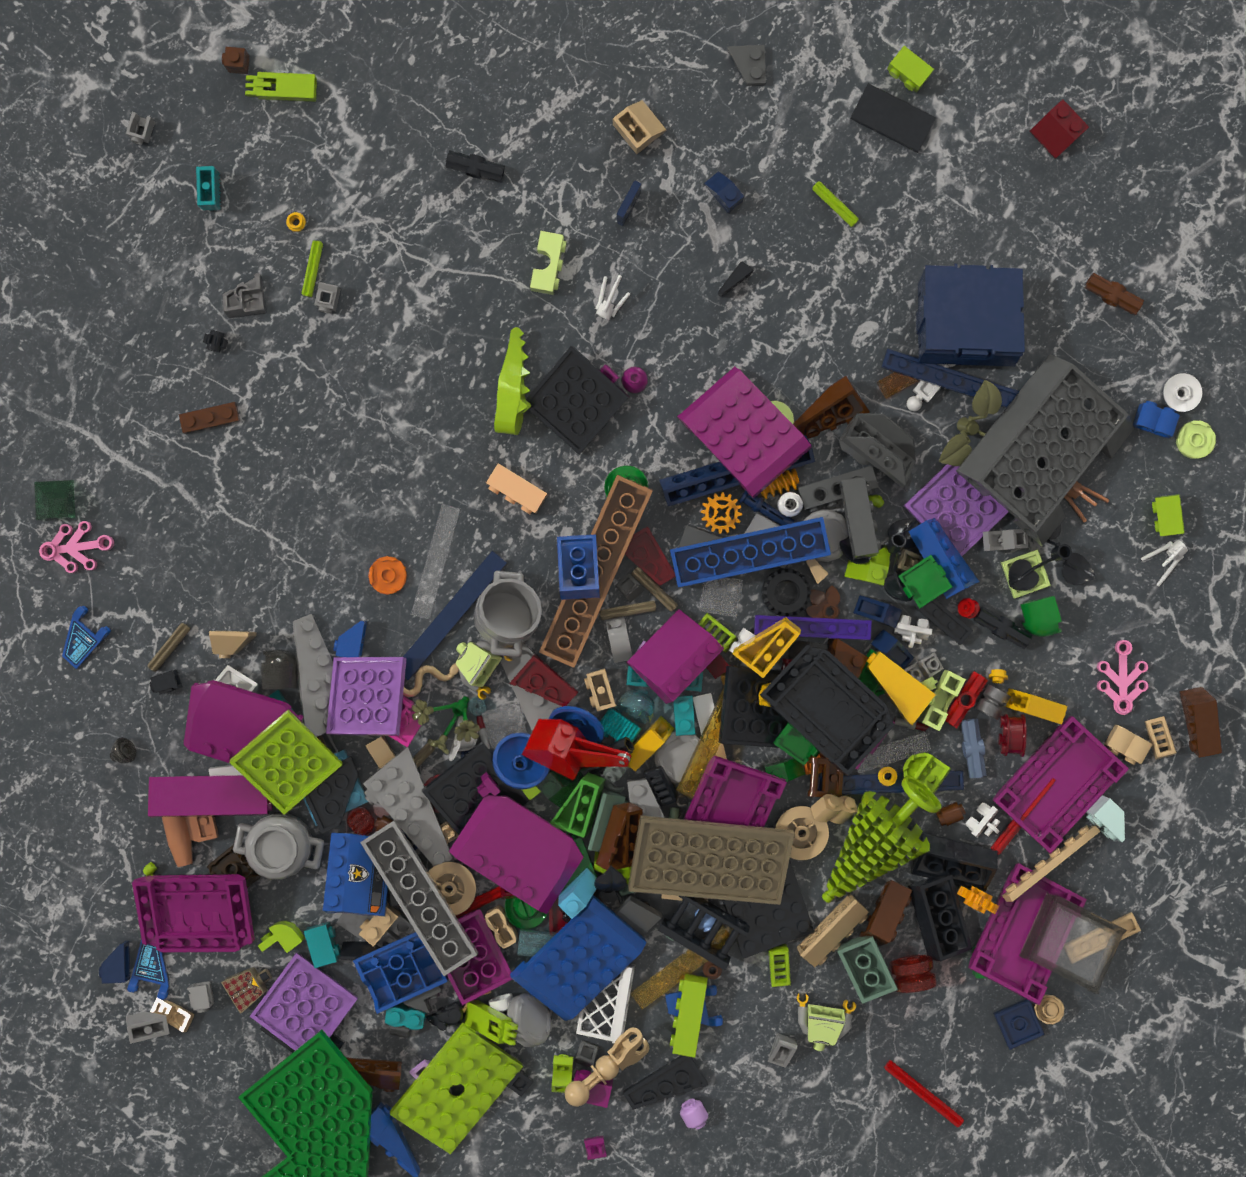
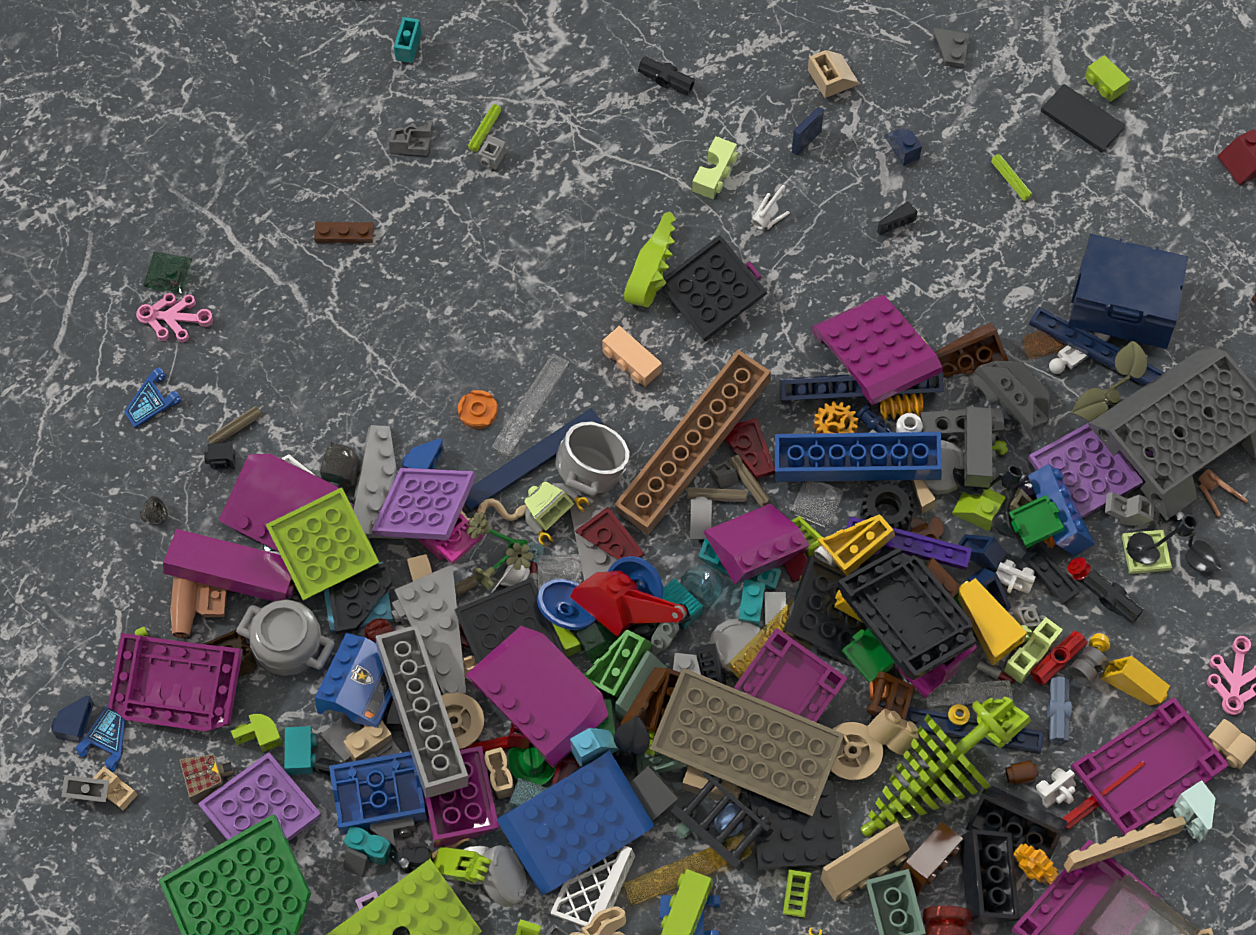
camera: 15 degrees right, 25 degrees down
(201, 996) = (152, 774): light grey window -> none
(215, 341) = (372, 166): black gear -> none
(229, 642) = (300, 429): tan slope -> none
(294, 216) = (481, 82): yellow plate -> none
(379, 1073) = (326, 901): reddish brown wedge -> none
(488, 786) = (527, 619): magenta tile -> none
(578, 567) = (676, 425): blue slope -> none
(602, 695) = (669, 558): tan brick -> none
(634, 379) = (776, 287): magenta brick -> none
(650, 742) = (703, 624): yellow slope -> none
(707, 966) = (721, 885): reddish brown plate -> none
(786, 769) = (854, 688): green slope -> none
(1013, 735) = (1105, 701): dark red wheel -> none
(1041, 617) = (1156, 590): green brick -> none

